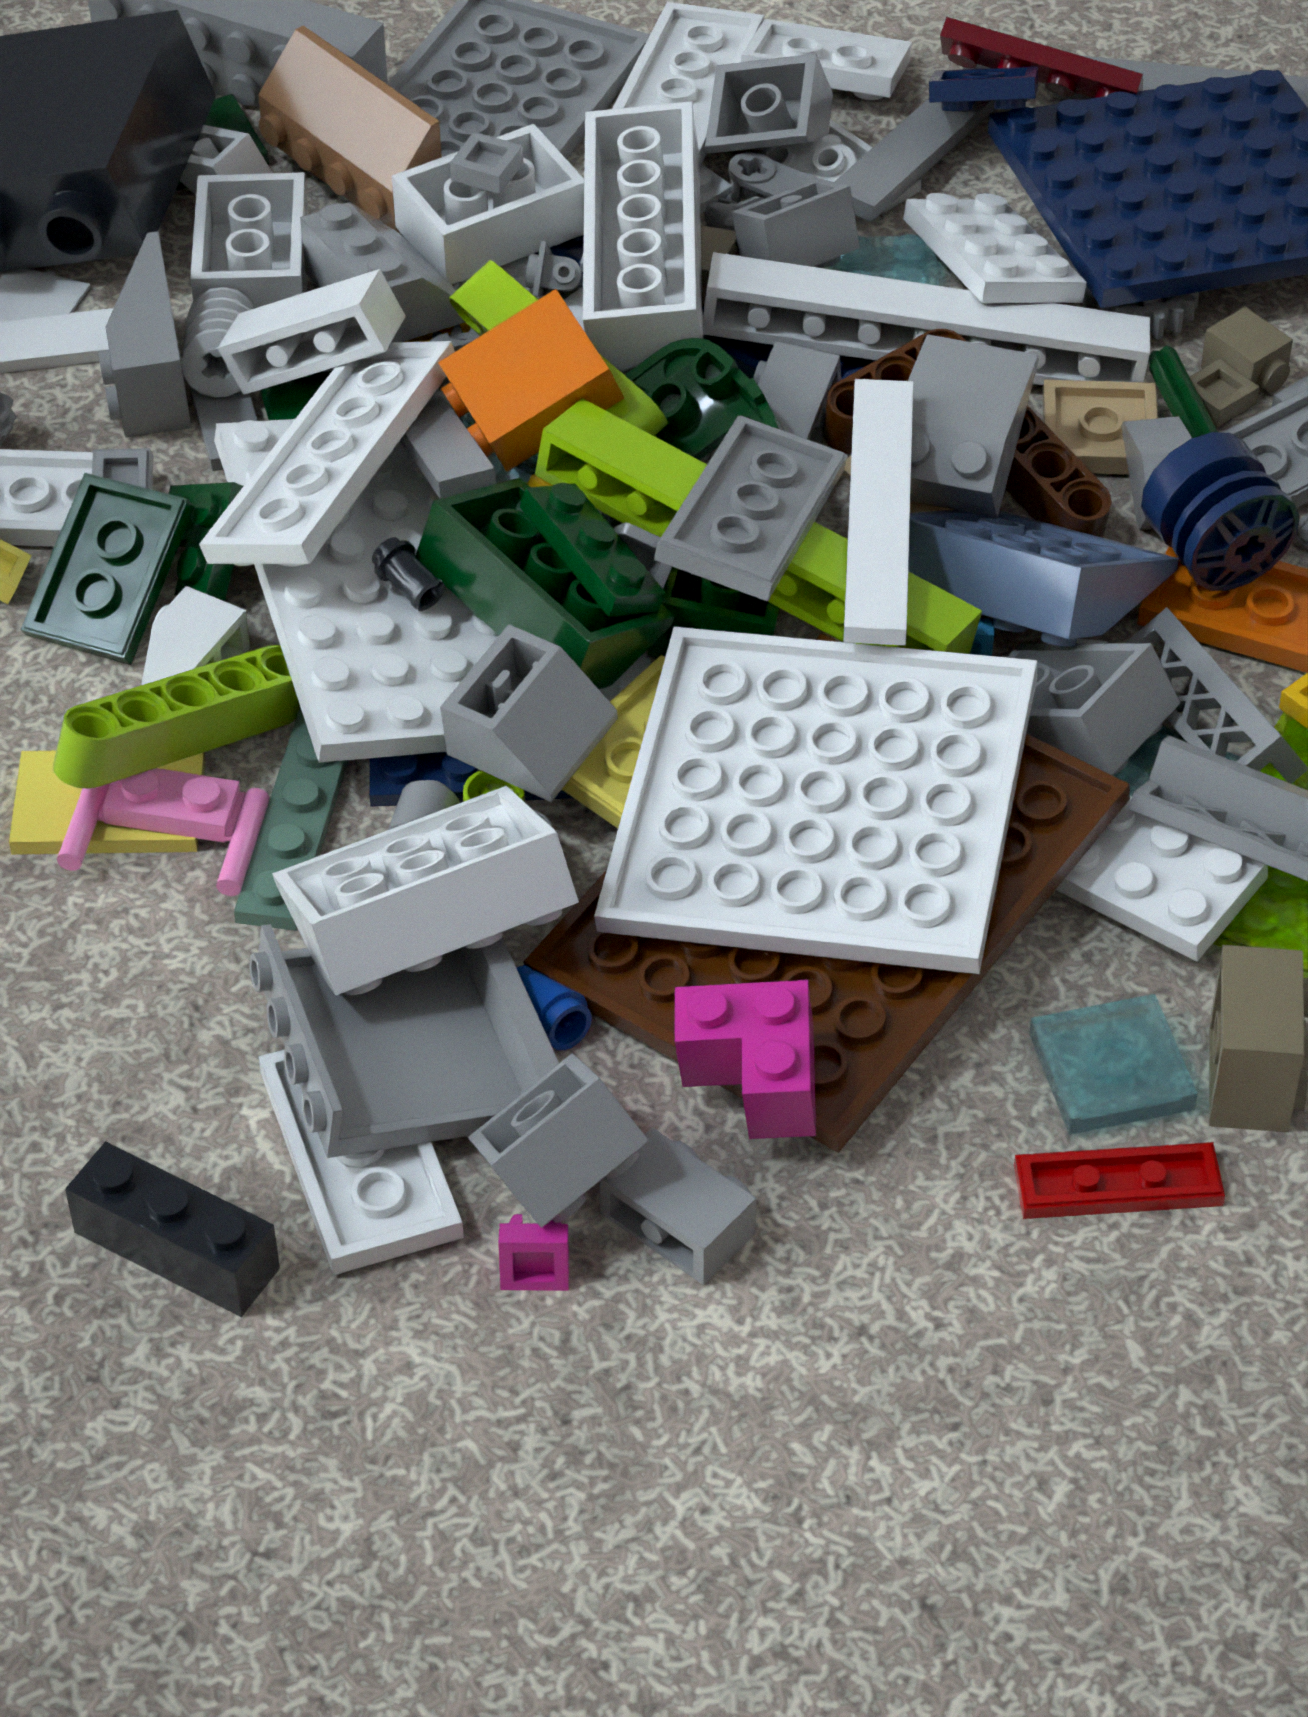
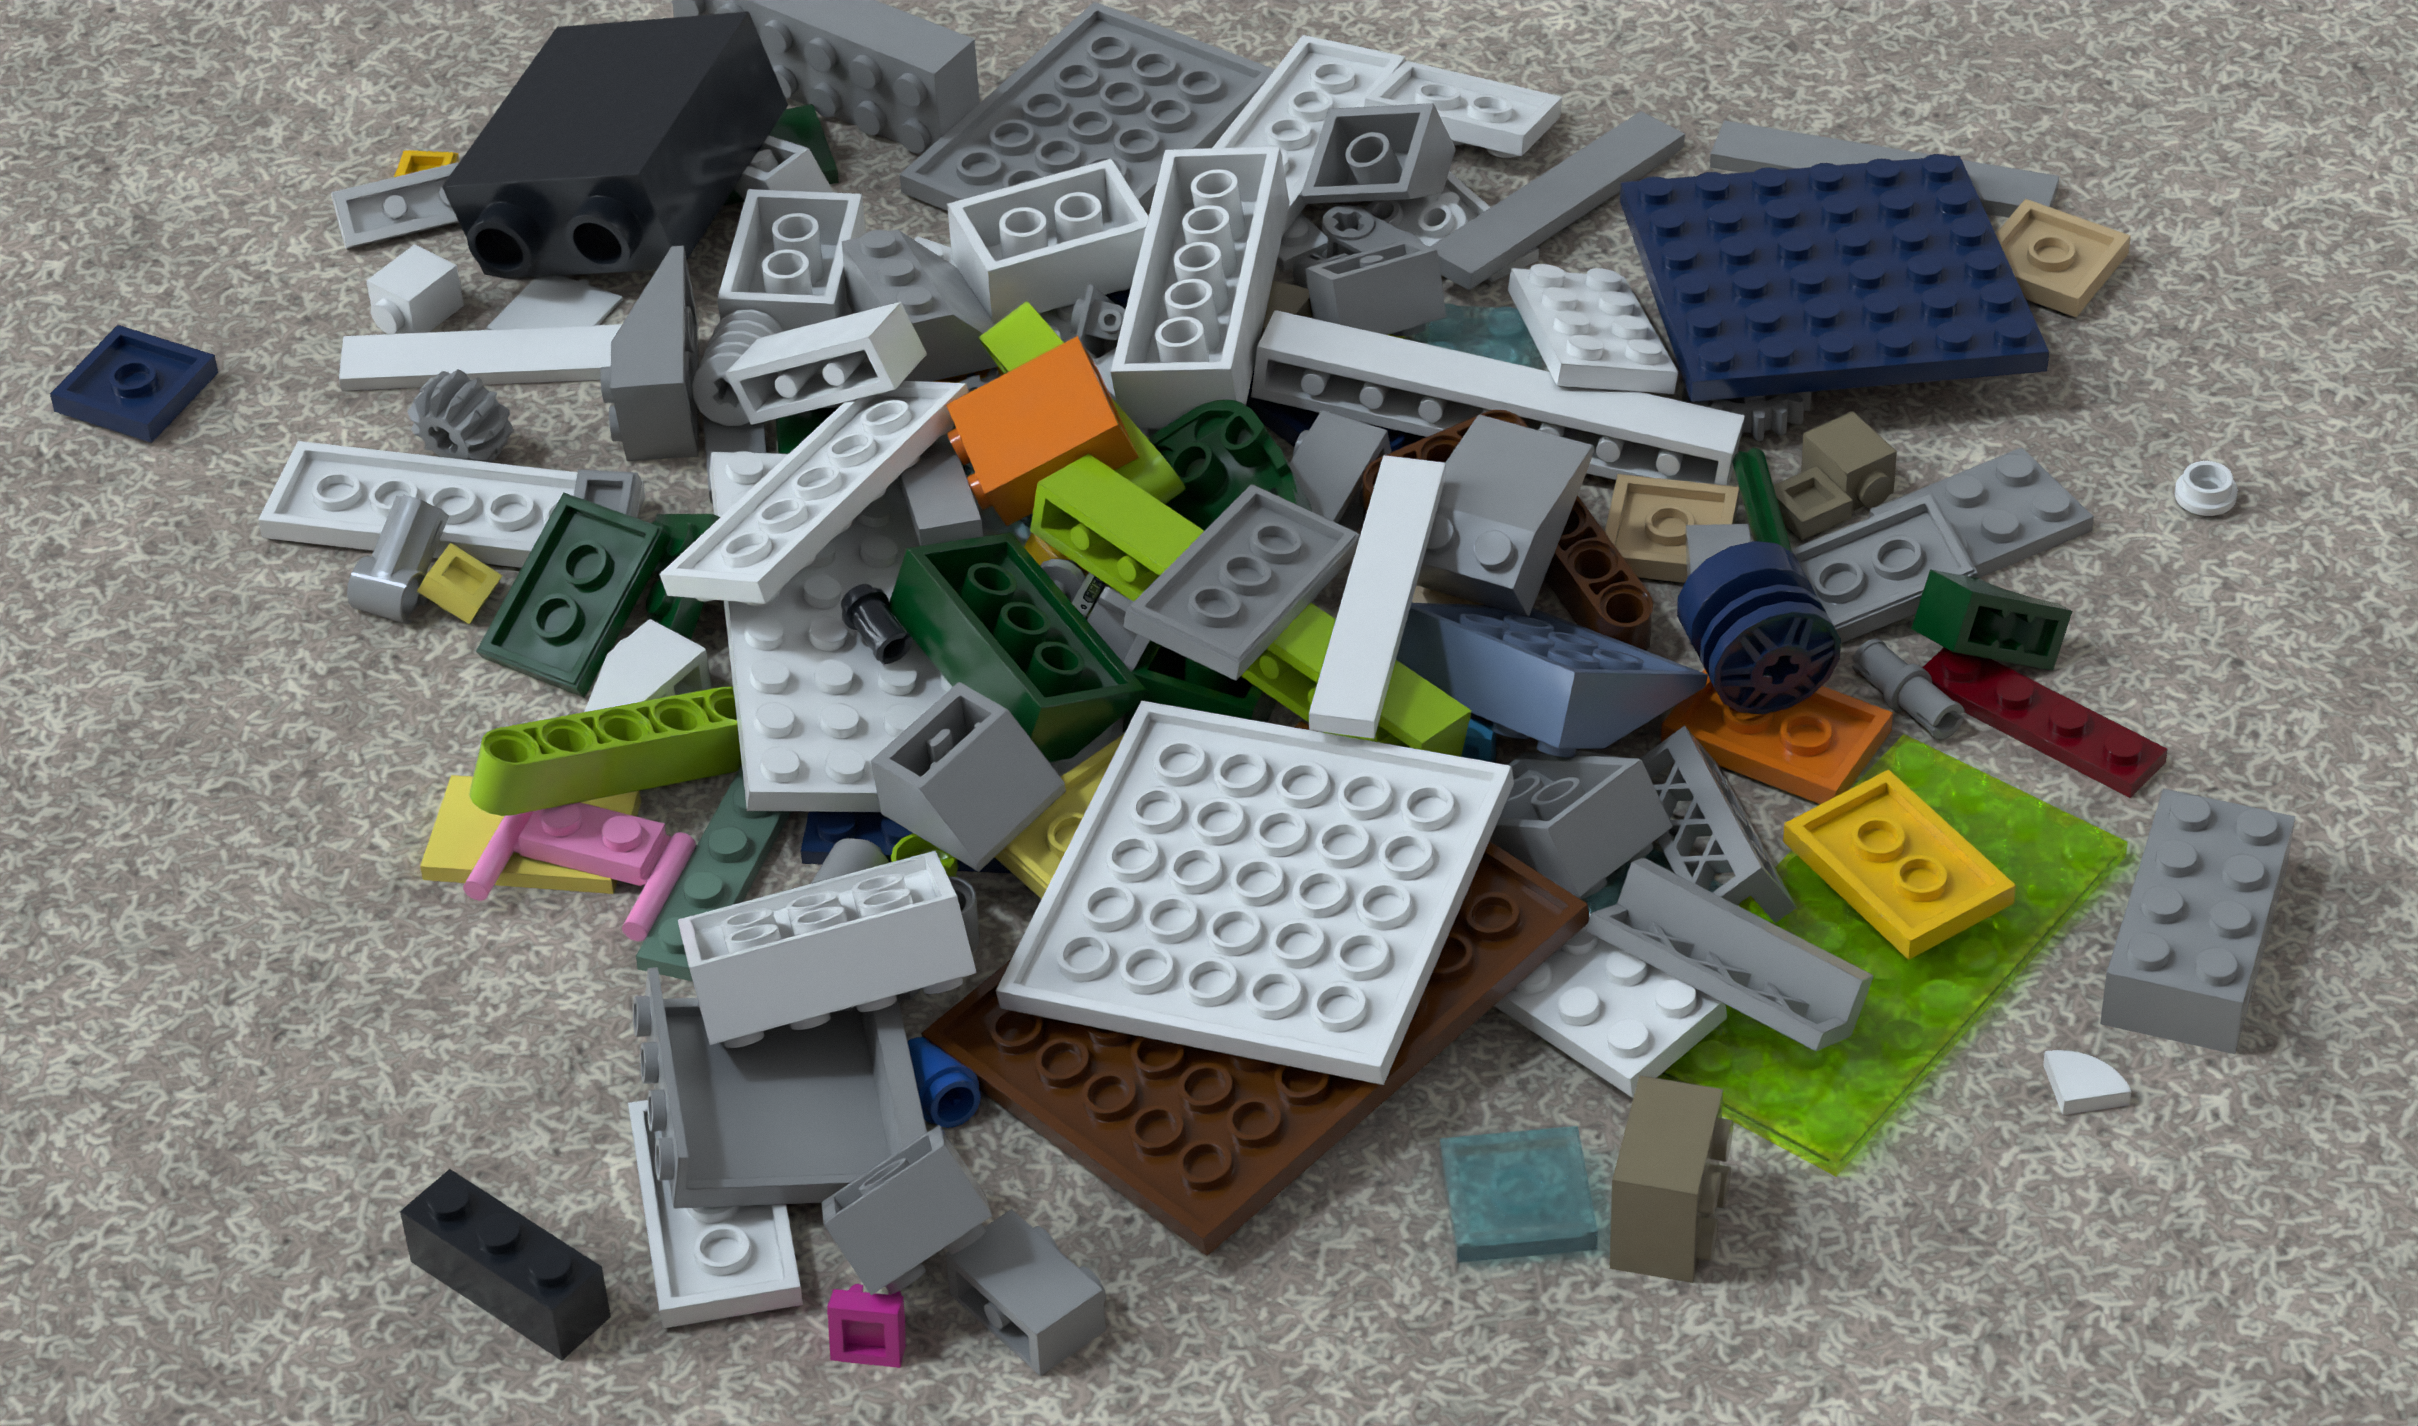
camera: 10 degrees right, 5 degrees down
(344, 123) = (911, 144): slope -> none
(486, 162) = (1046, 197): light grey plate -> none
(592, 550) = (1068, 613): dark green plate -> none
(755, 1039) = (1135, 1133): dark pink brick -> none
(961, 88) = (1638, 152): dark blue plate -> none
(1057, 69) = (1674, 124): dark red plate -> none
(1118, 1180) = (1498, 1313): red tile -> none

